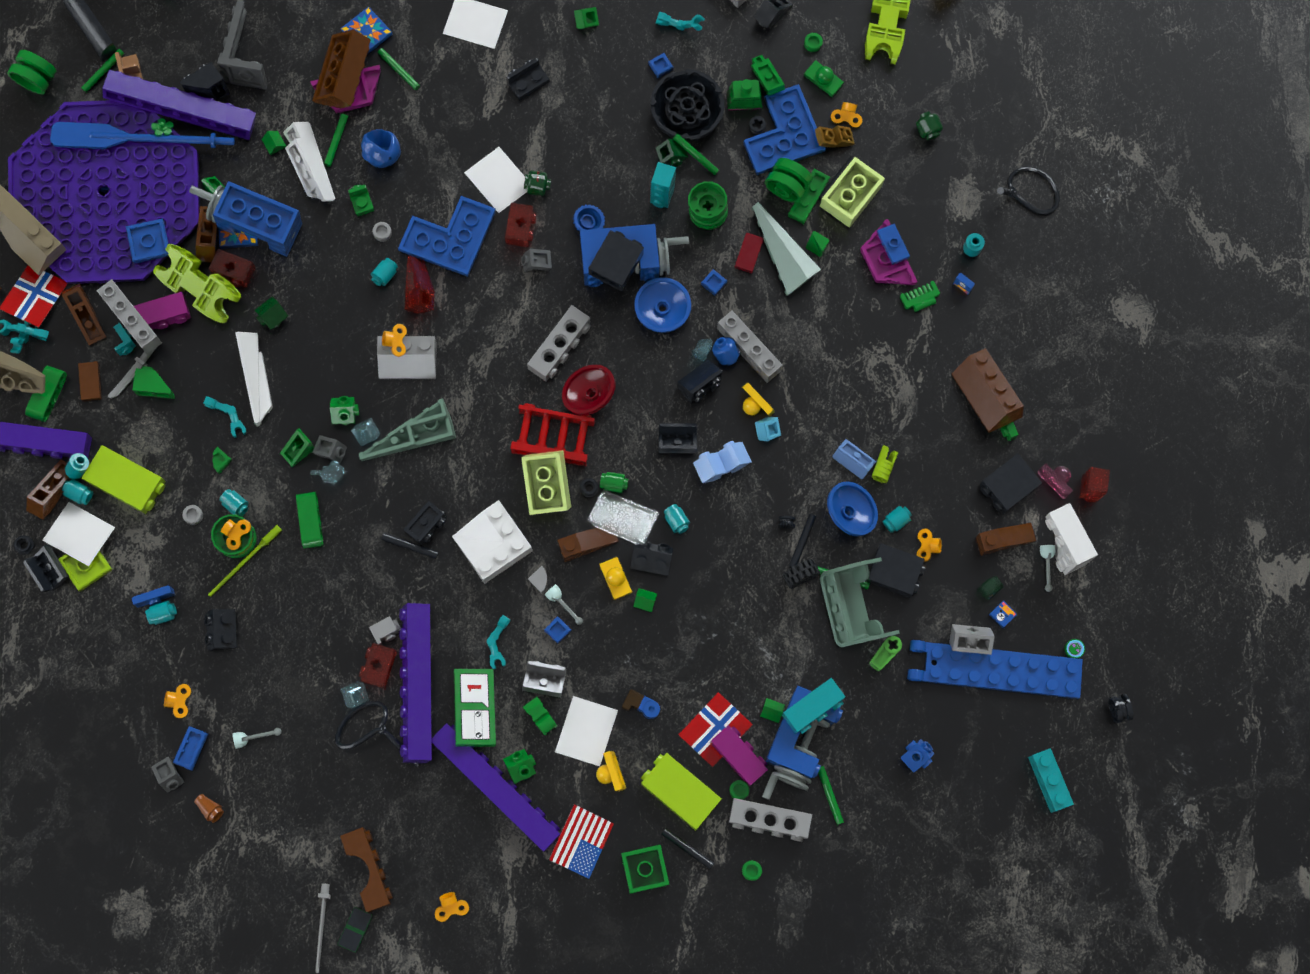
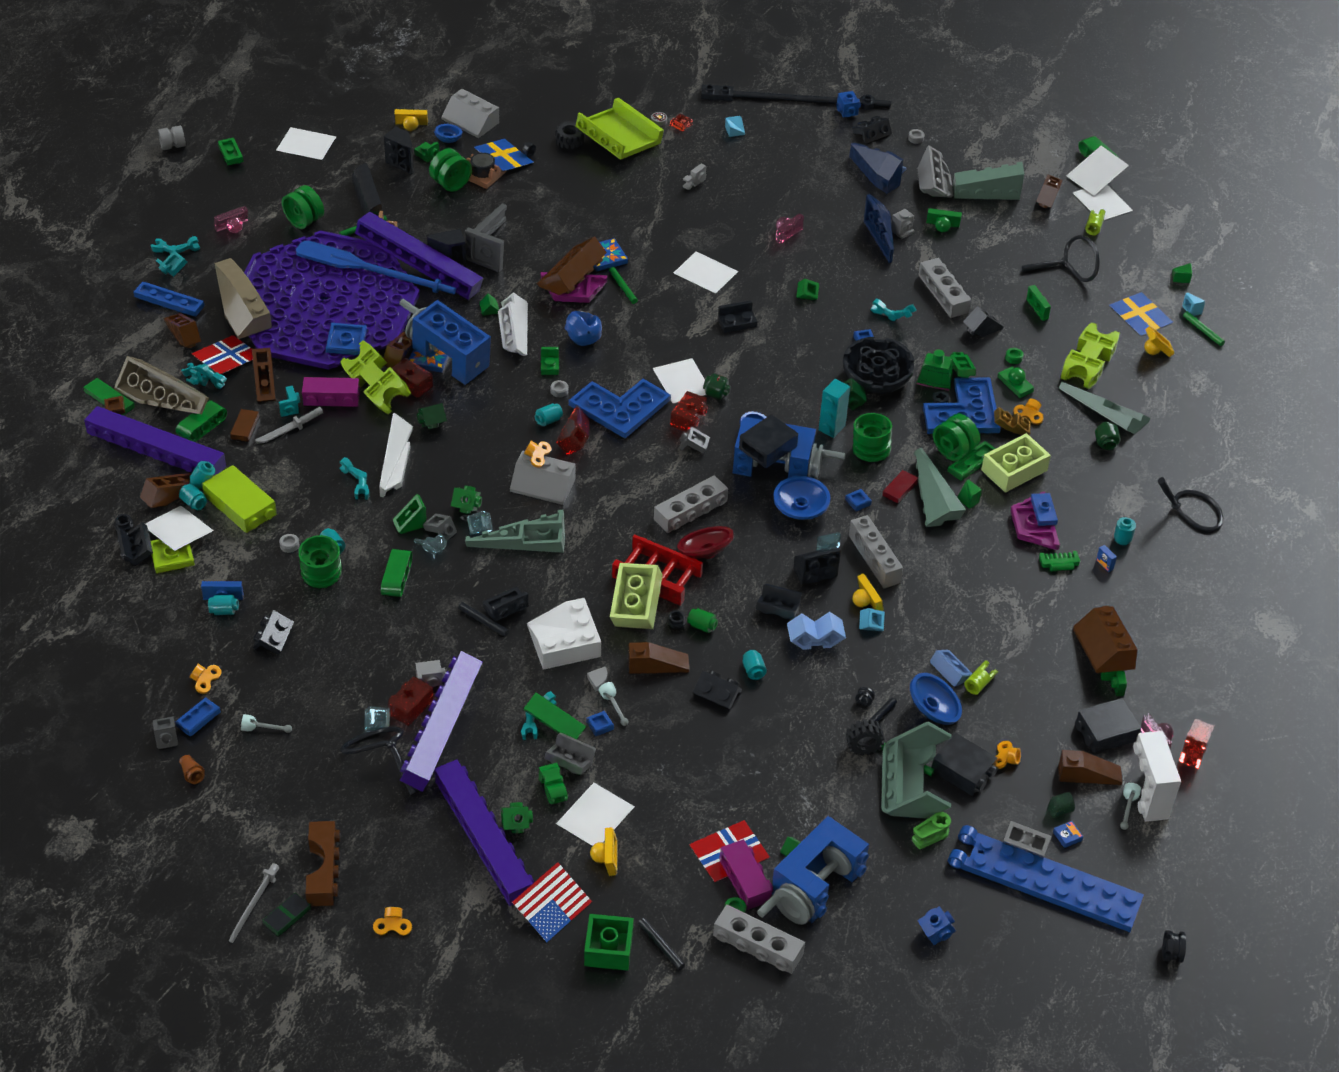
camera: 20 degrees right, 30 degrees down
(129, 316) = (304, 378): light grey brick -> none
(149, 383) = (298, 438): green slope -> none
(162, 127) = (396, 265): green plant -> none
(220, 460) = (335, 510): green tile -> none
(235, 532) = (323, 550): light orange piece -> none
(265, 540) = (347, 579): lime piece -> none
(335, 141) = (545, 318): green bar -> none
(474, 707) = (490, 757): tile -> none
(516, 643) = (554, 717): none -> green tile
(615, 578) = (675, 697): yellow tile -> none
(622, 517) = (700, 647): clear piece -> none
(641, 703) = (659, 803): leg -> none
(645, 600) = (697, 723): green slope -> none
(680, 790) = (673, 888): lime brick -> none
(698, 156) = (870, 395): green bar -> none
(726, 351) = (851, 547): blue head -> none
(751, 870) = (722, 983): green tile -> none
(814, 706) = (838, 831): teal brick -> none
(830, 796) = (831, 942): green bar -> none
(897, 519) = (980, 723): teal brick -> none
(930, 91) = (1124, 417): none -> sand green wedge
(1050, 780) = (1077, 990): teal brick -> none
(1074, 648) = (1138, 883): tile -> none

